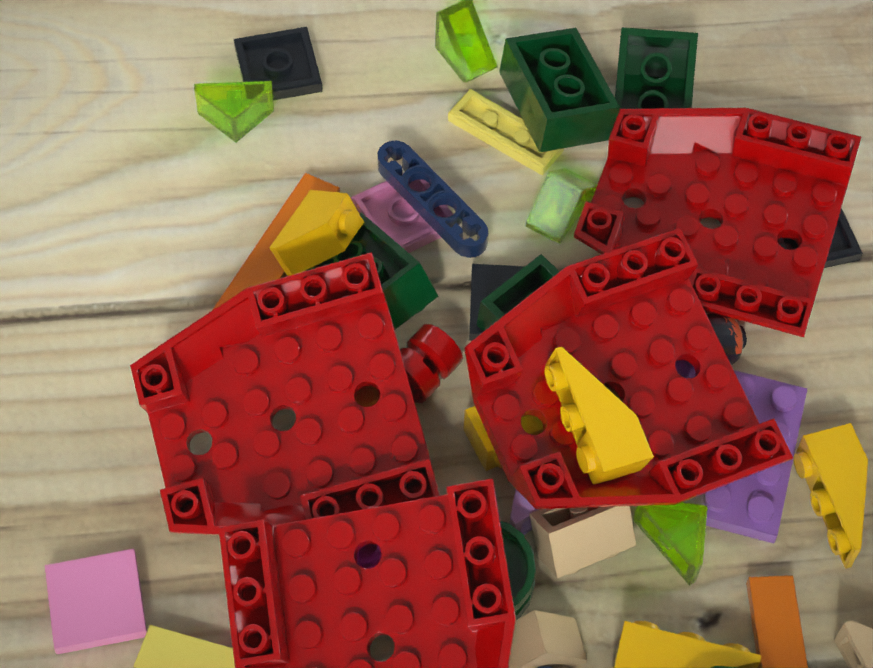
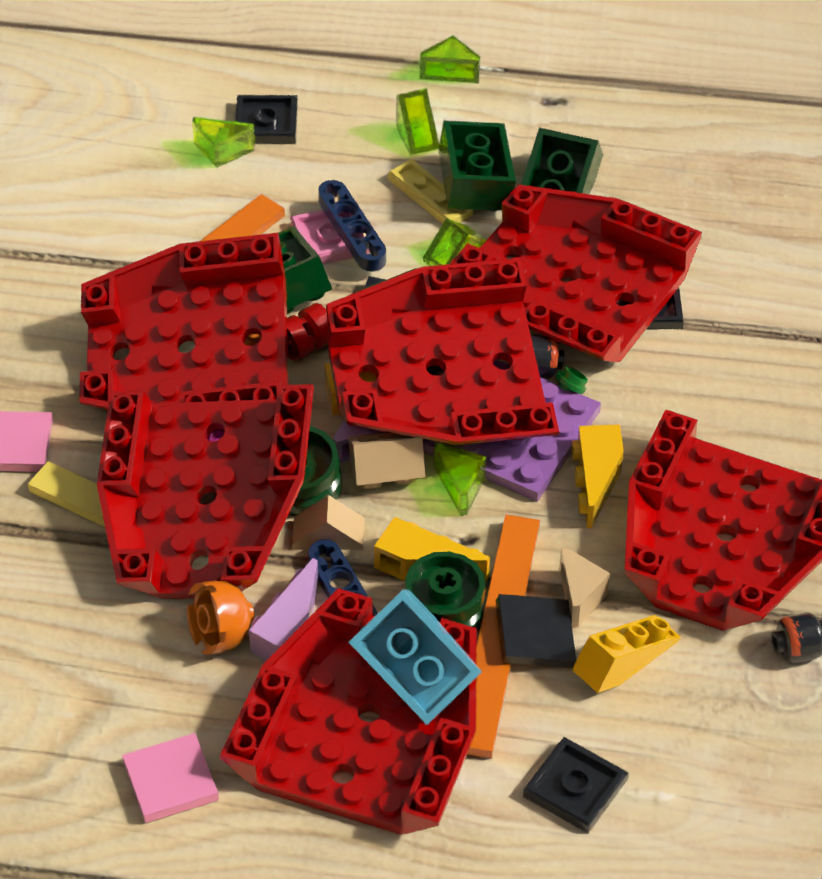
camera: 15 degrees right, 10 degrees down
(316, 231) = (256, 220): yellow slope -> none
(602, 425) = (416, 379): yellow slope -> none
(763, 364) = (571, 380): none -> green plate

